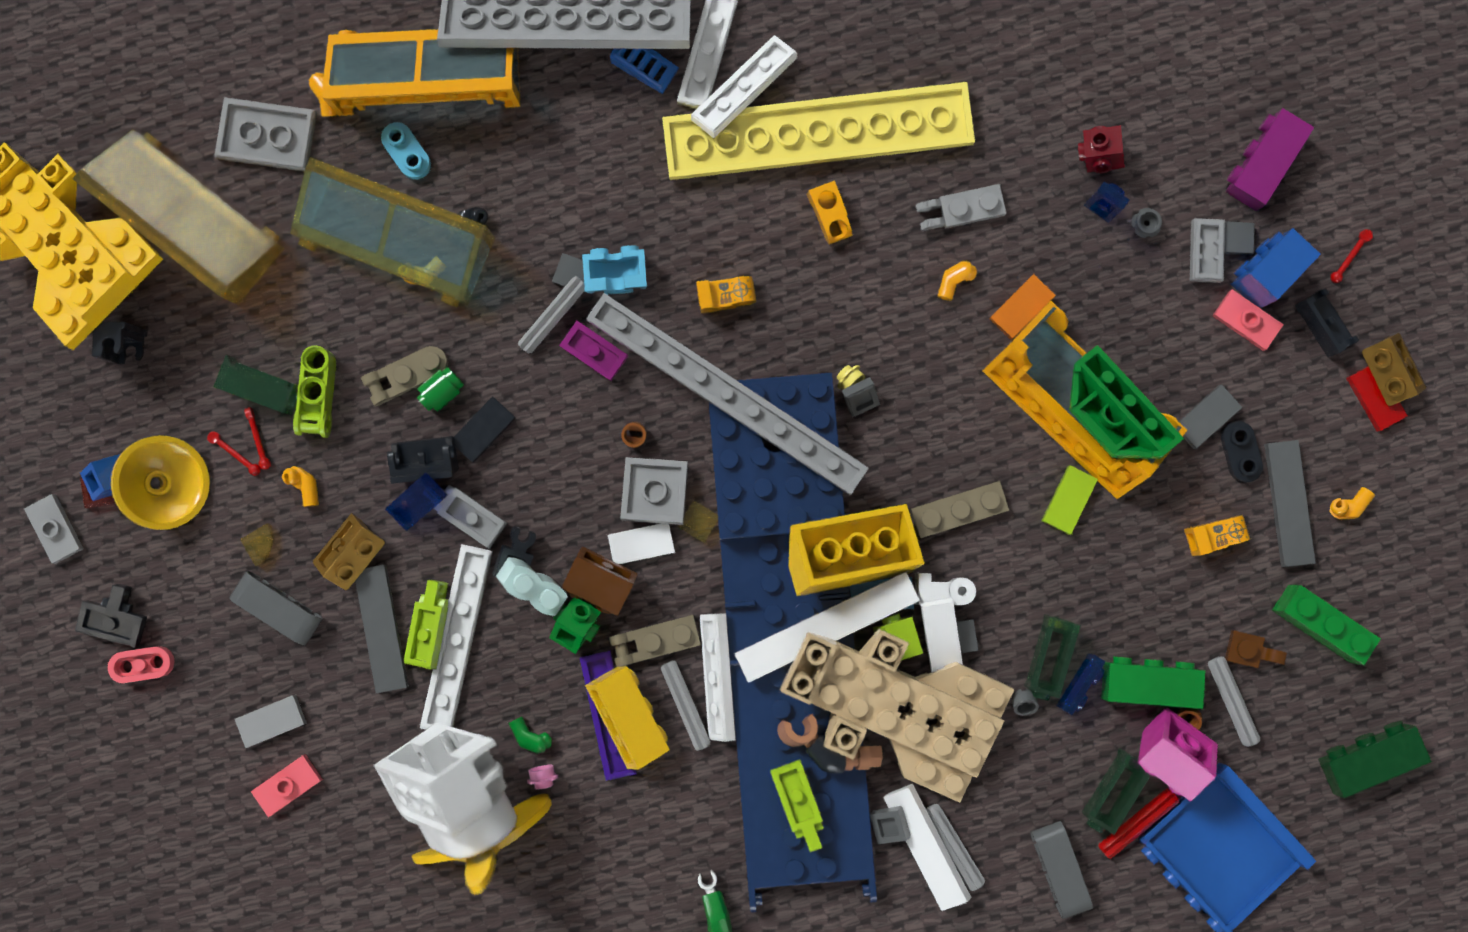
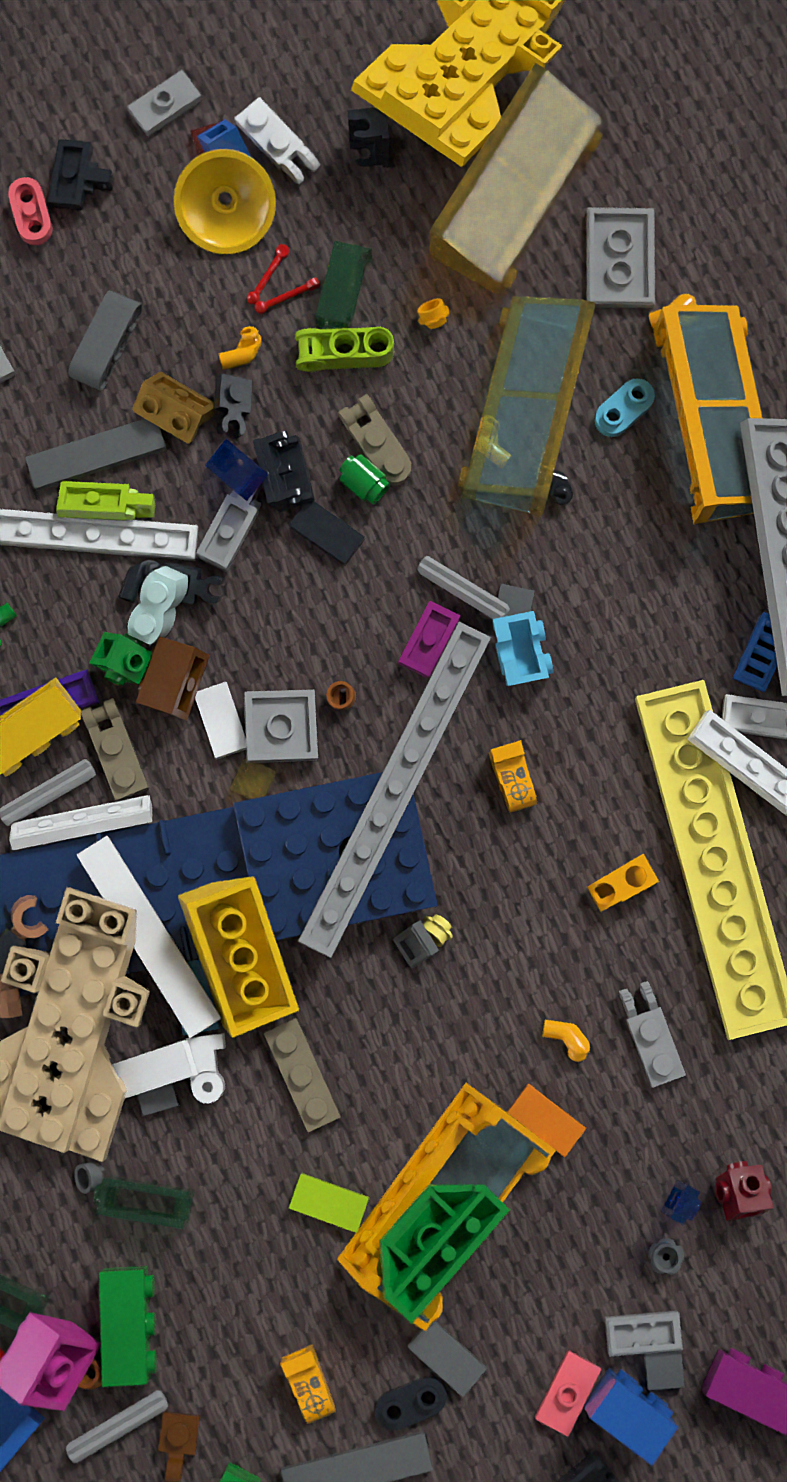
camera: 80 degrees right, 5 degrees down
(105, 430) = (275, 139): none -> white hinge
(259, 544) = (173, 313): clear yellow tile -> none
(294, 308) = (433, 313): none -> light orange plate
(349, 497) = (234, 400): none -> black plate
(501, 604) = (134, 579): none -> black arm
(903, 629) = (153, 1024): lime brick -> none
(1088, 673) = (130, 1247): clear blue plate -> none

